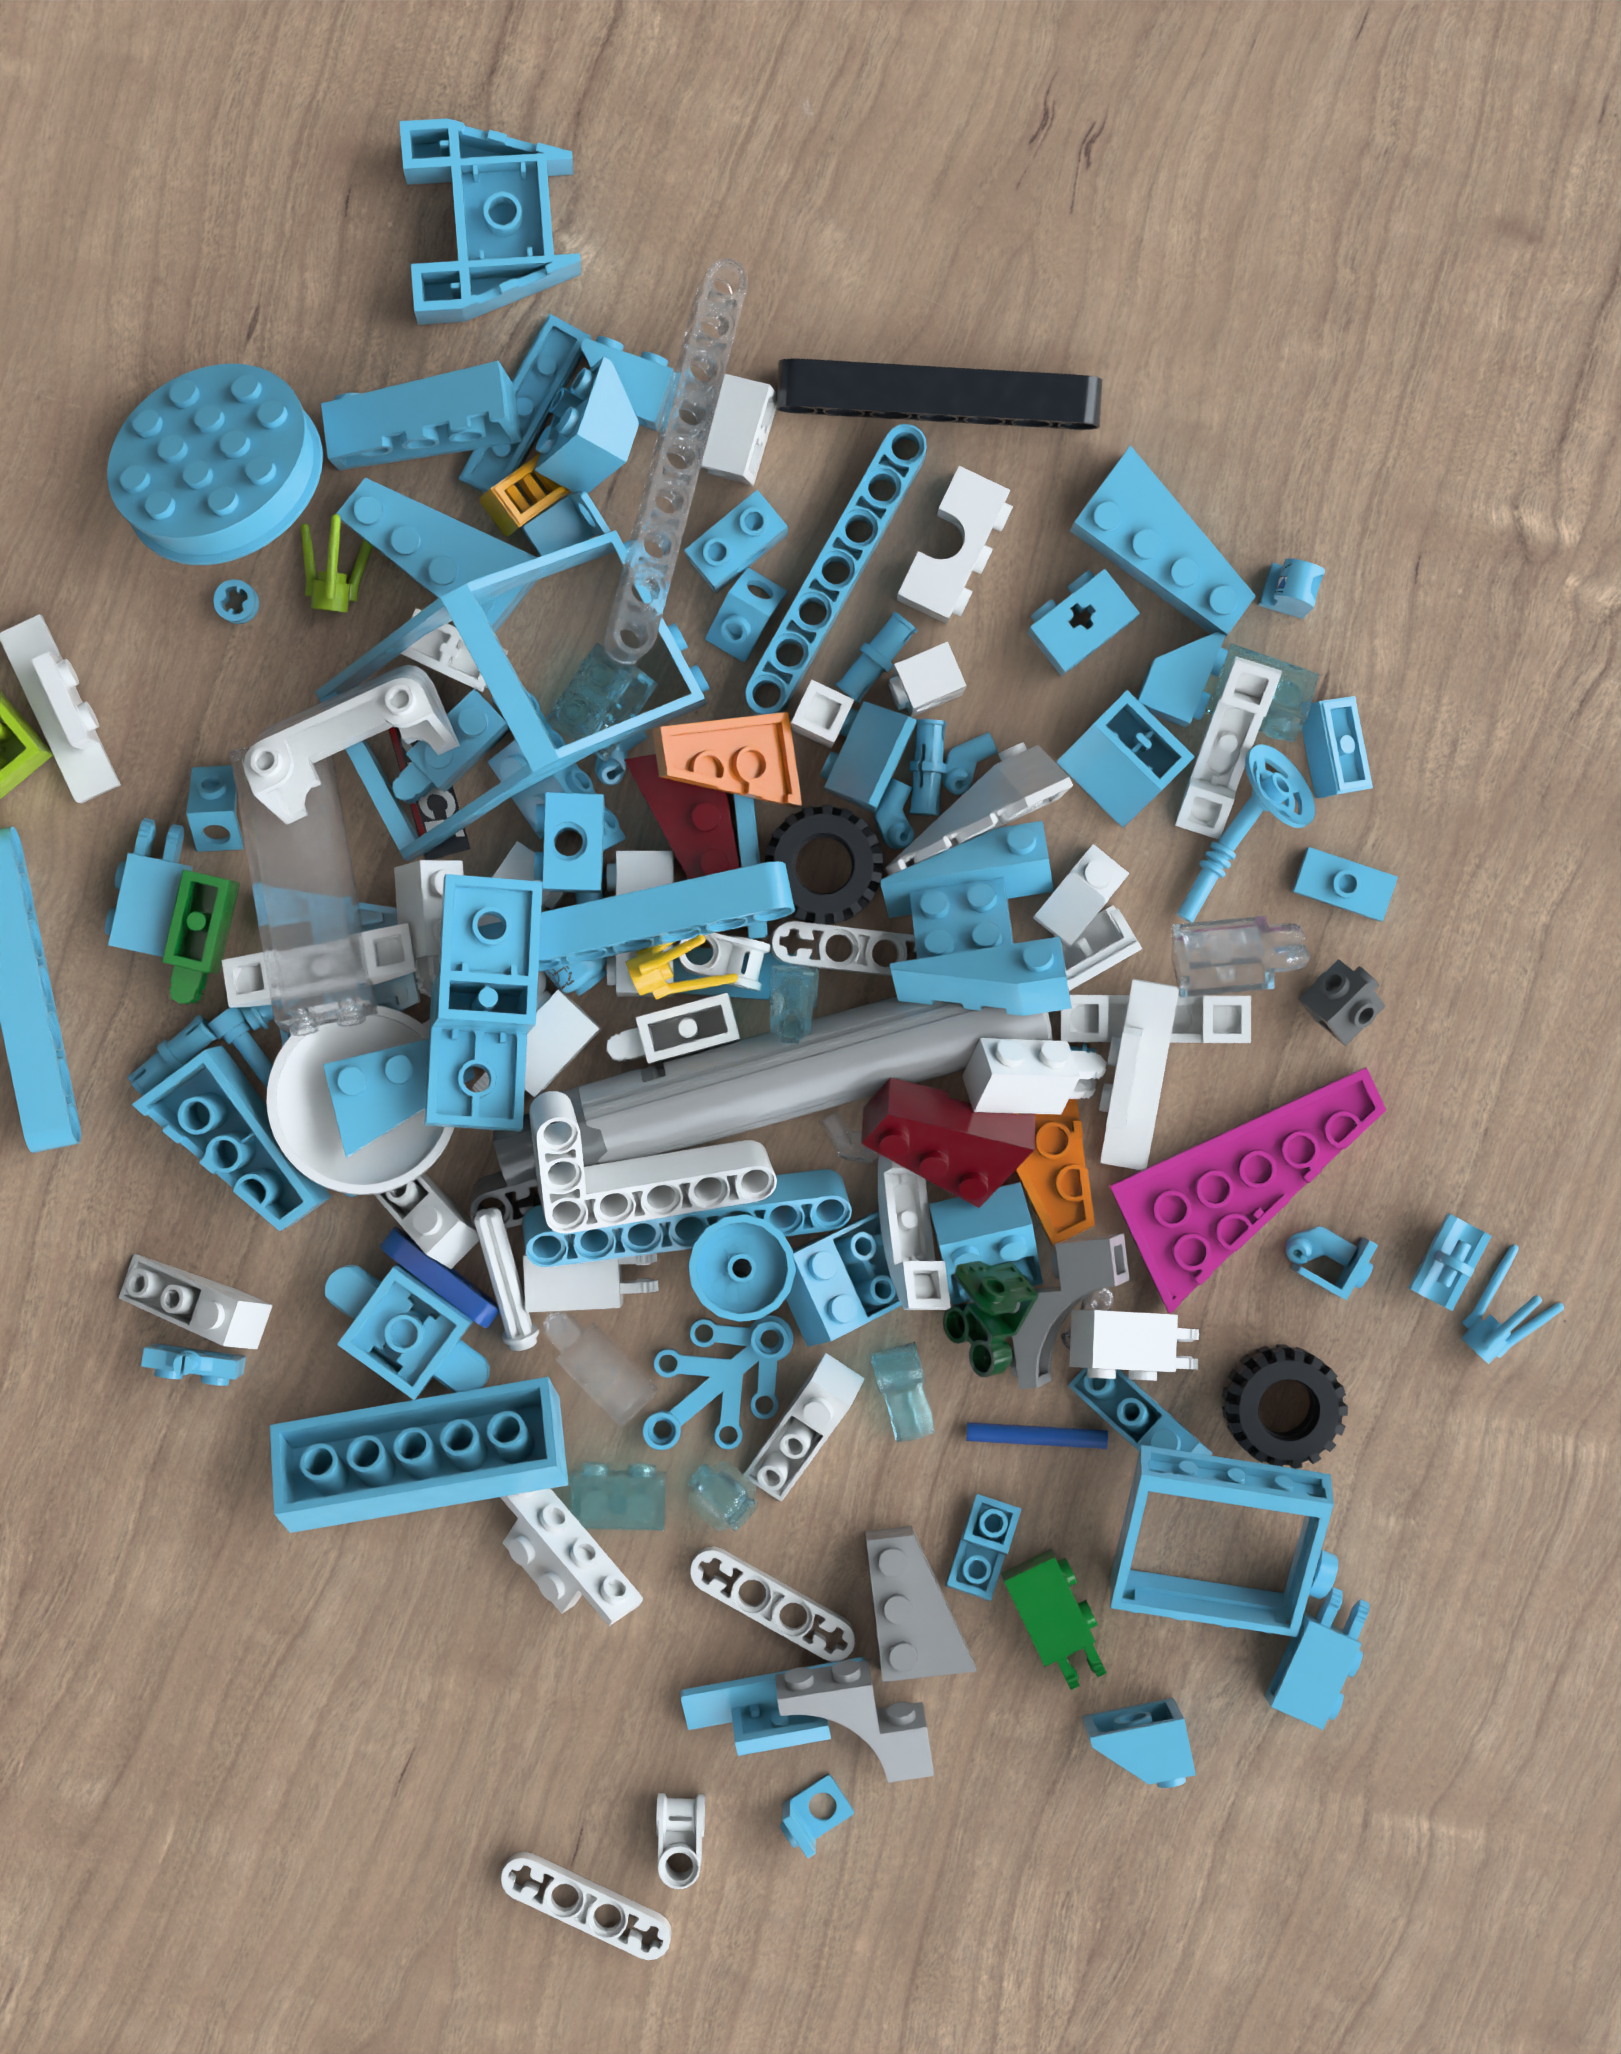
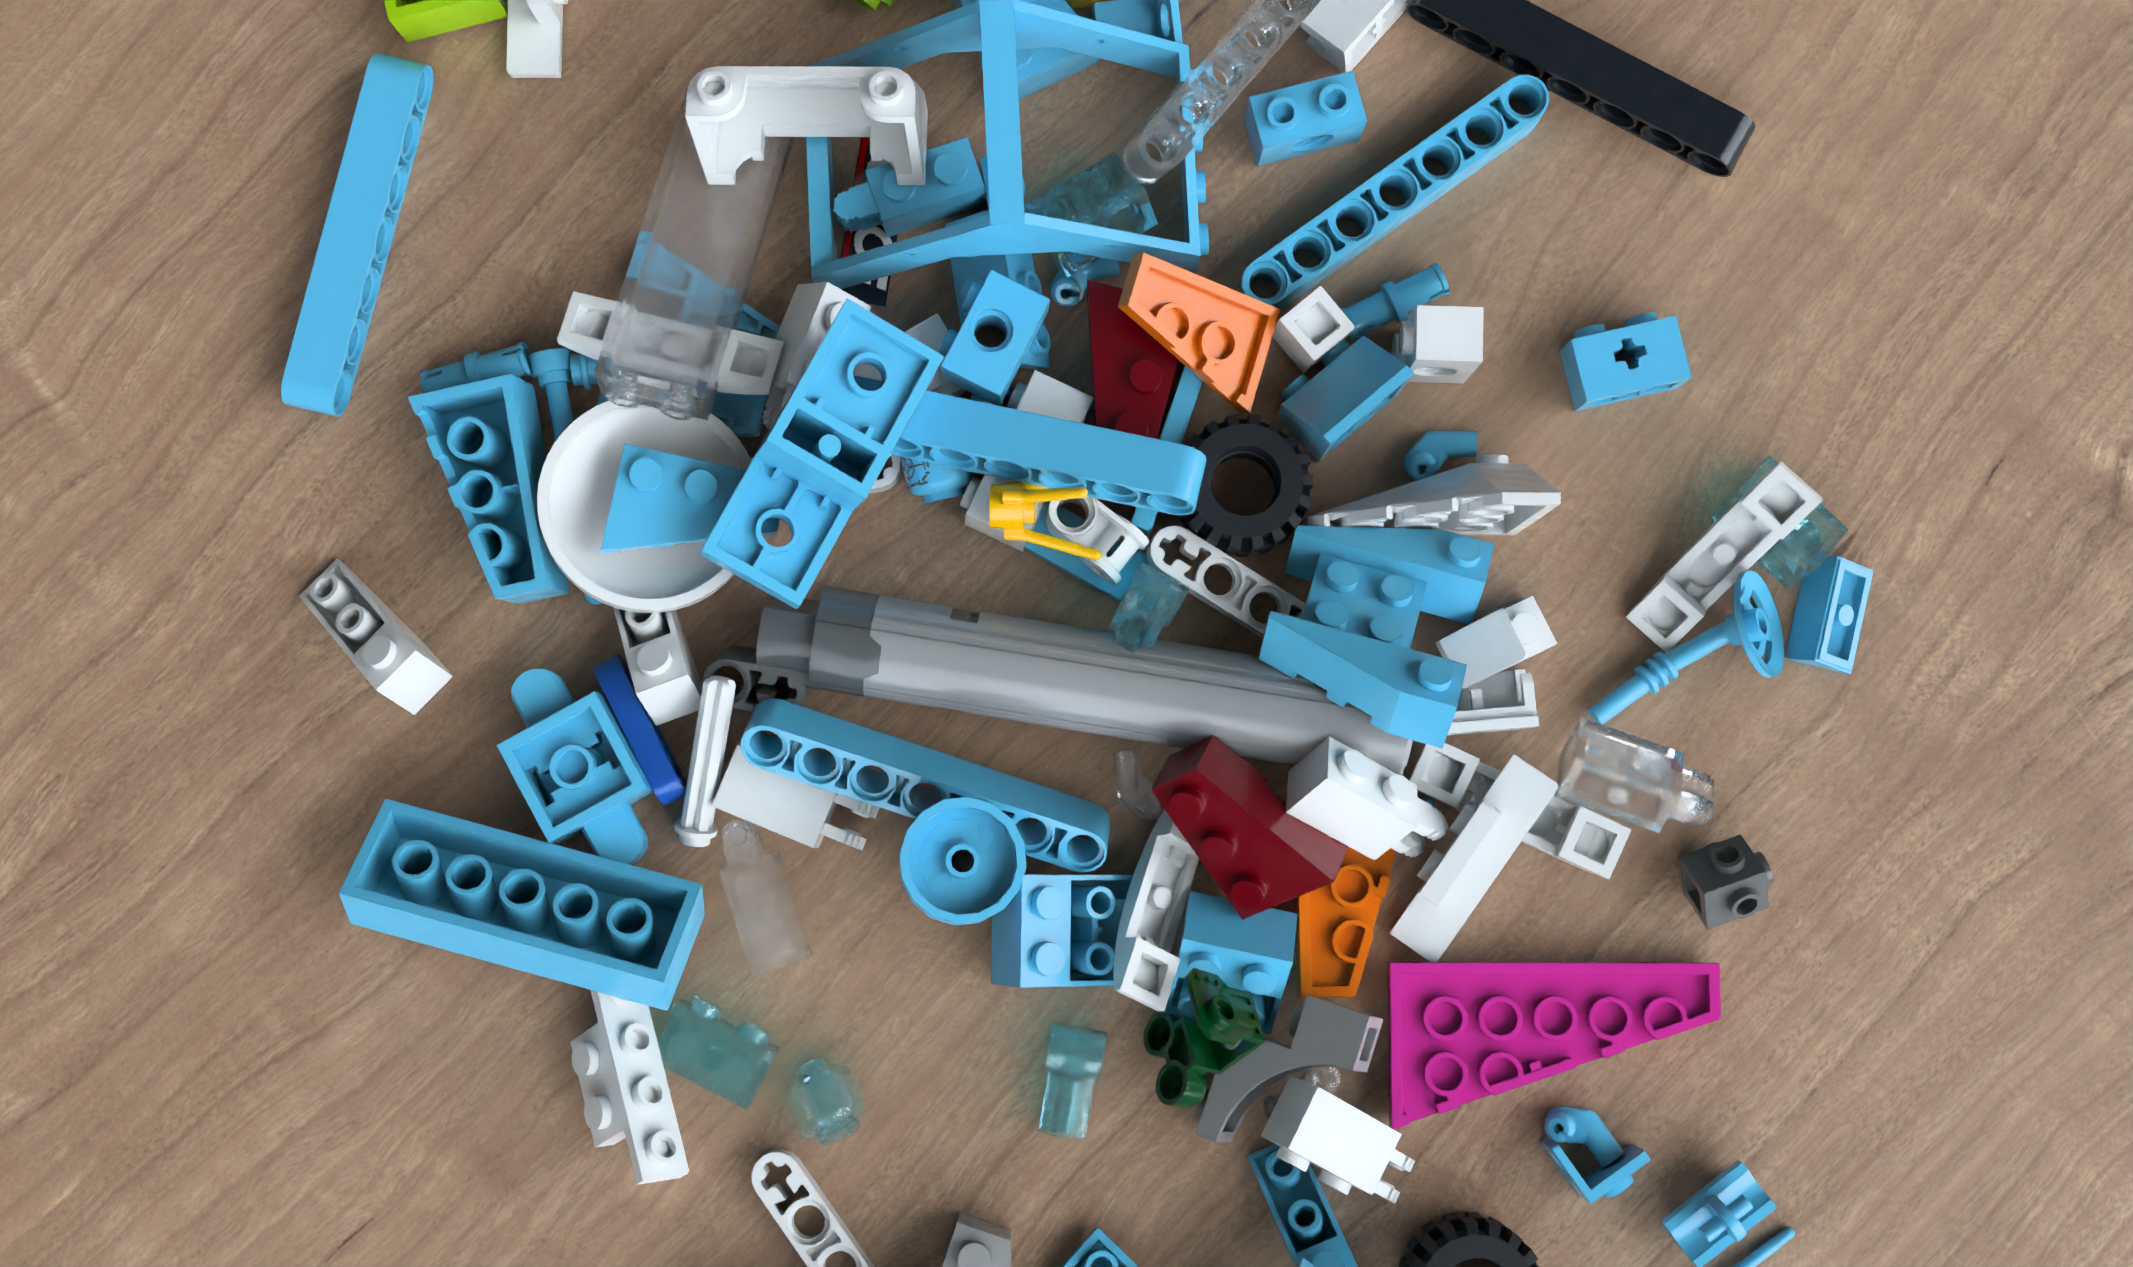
camera: 20 degrees right, 5 degrees down
(146, 893) = (535, 198): medium azure hinge -> none
(176, 1361) = (322, 687): medium azure plate -> none
(198, 933) = (565, 256): green hinge -> none
(213, 802) = (644, 134): medium azure bracket -> none
(448, 654) = (958, 90): white hinge -> none
(553, 1042) = (875, 537): white hinge -> none
(636, 1179) = (893, 714): white beam -> none
(677, 1031) = (1009, 585): white hinge -> none
(724, 1376) = (889, 975): medium azure plant -> none
(744, 615) = (1276, 198): medium azure bracket -> none
(804, 1427) = (947, 1068): white slope -> none
(891, 818) = (1332, 471): medium azure arm -> none
(928, 767) = (1396, 438): medium azure pin -> none
(975, 509) = (1564, 197): white arch -> none
(1037, 1435) = (1190, 1194): blue bar -> none
(1125, 759) = (1611, 522): medium azure slope -> none
(1160, 546) = (1743, 324): medium azure wedge -> none
(1177, 680) = (1696, 468): medium azure slope -> none
(1292, 587) = (1862, 428): medium azure leg -> none
(1344, 884) = (1778, 760): medium azure plate -> none

